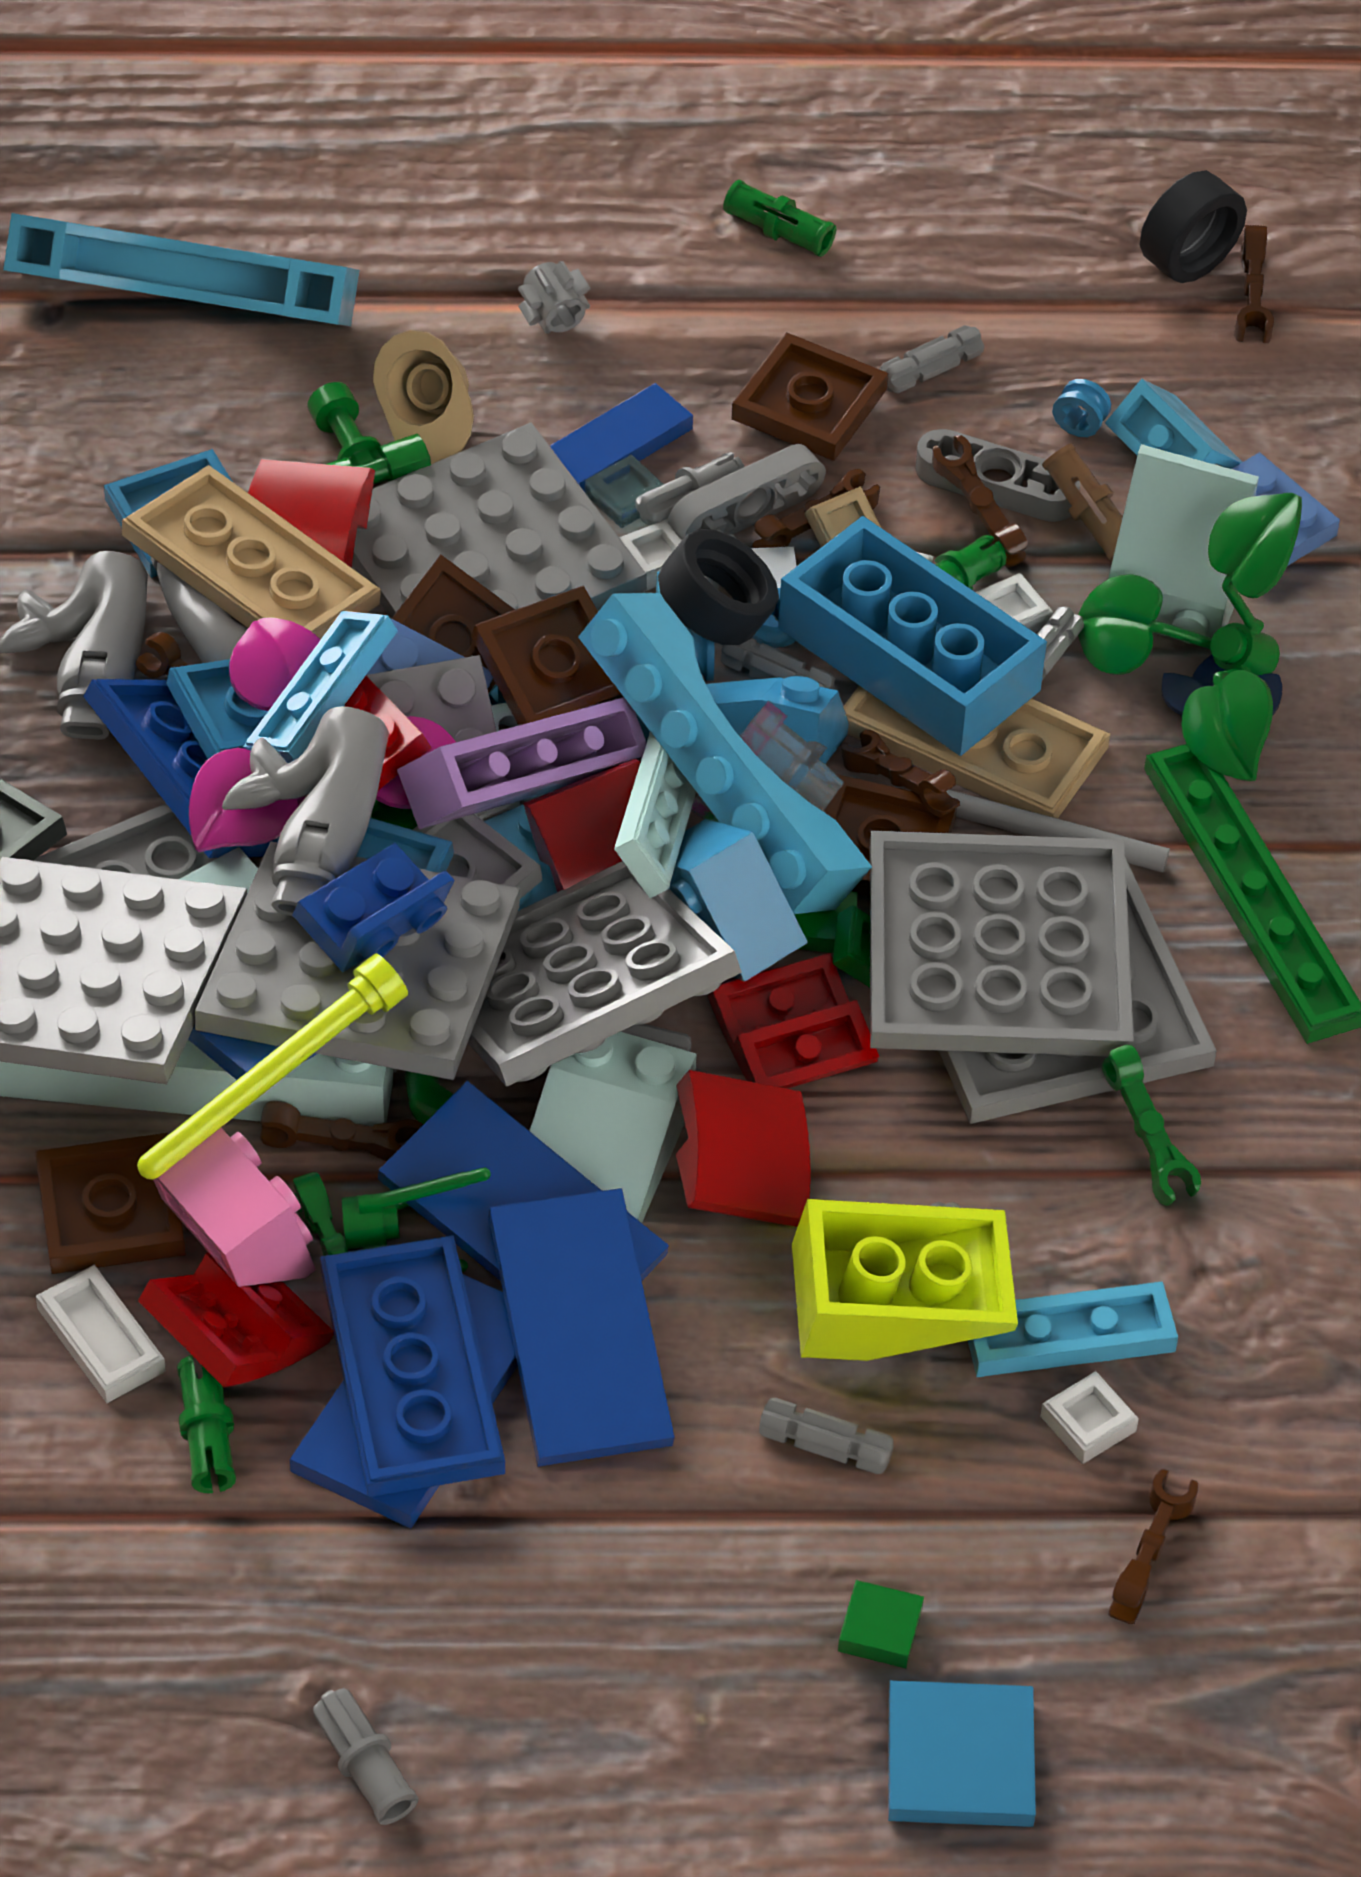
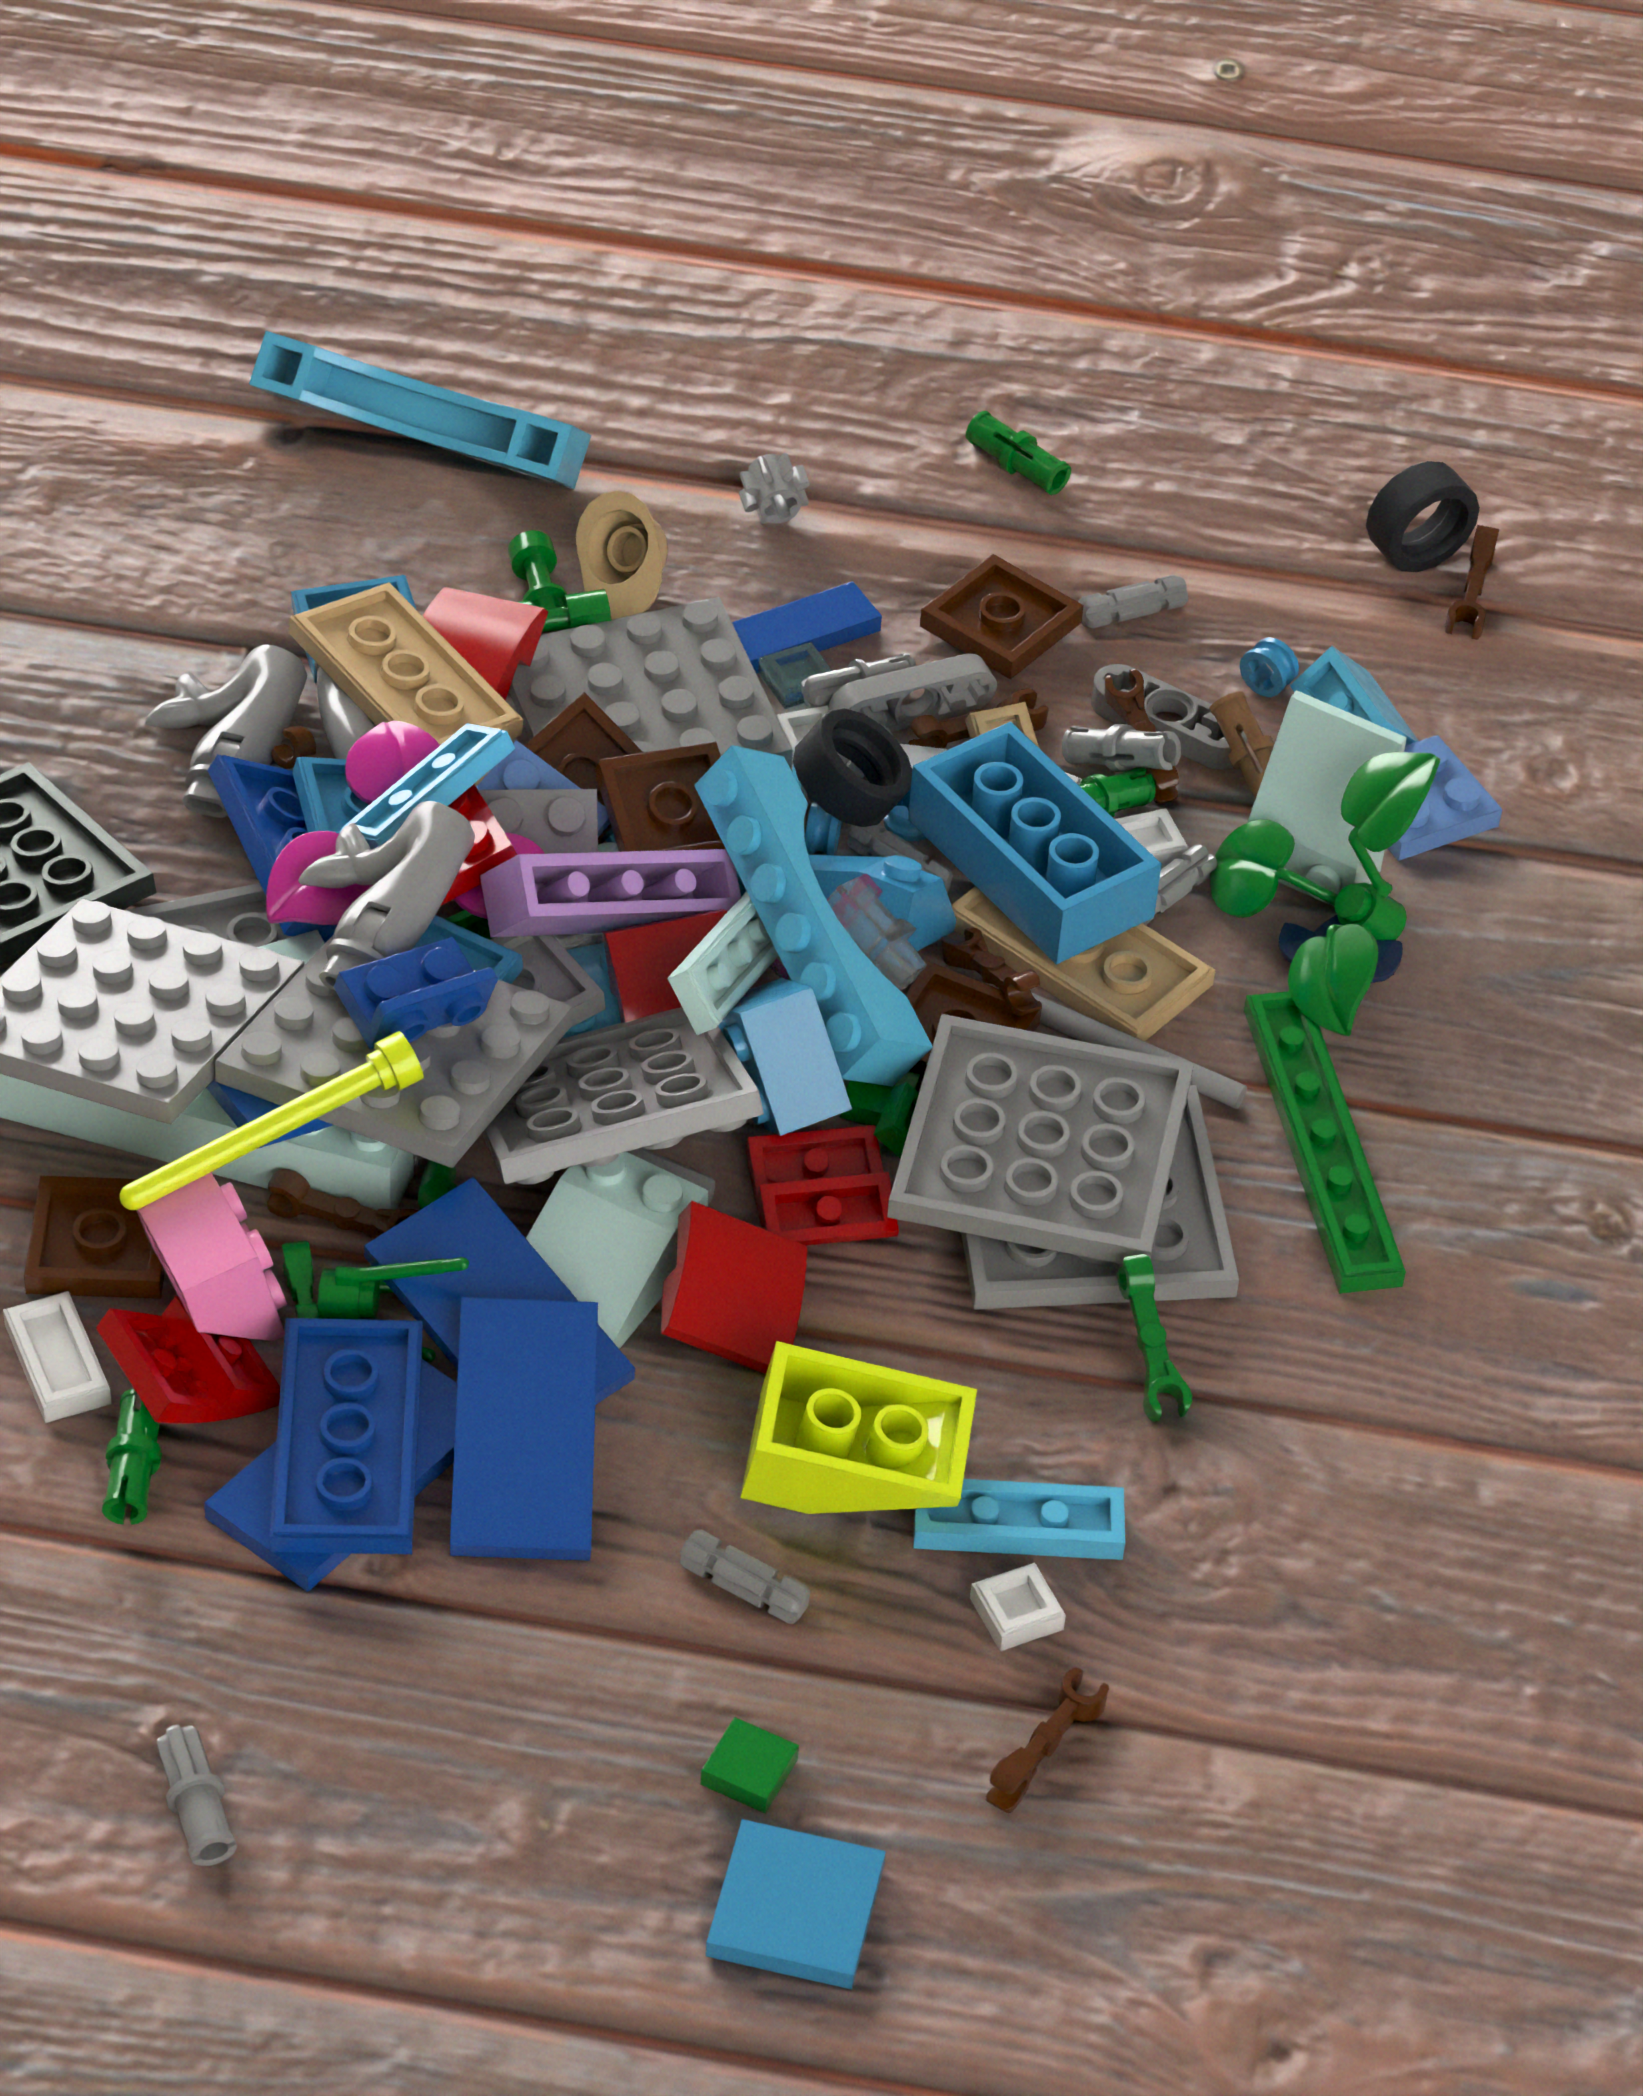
camera: 10 degrees right, 5 degrees down
(965, 518) = (1121, 747): none -> light grey pin

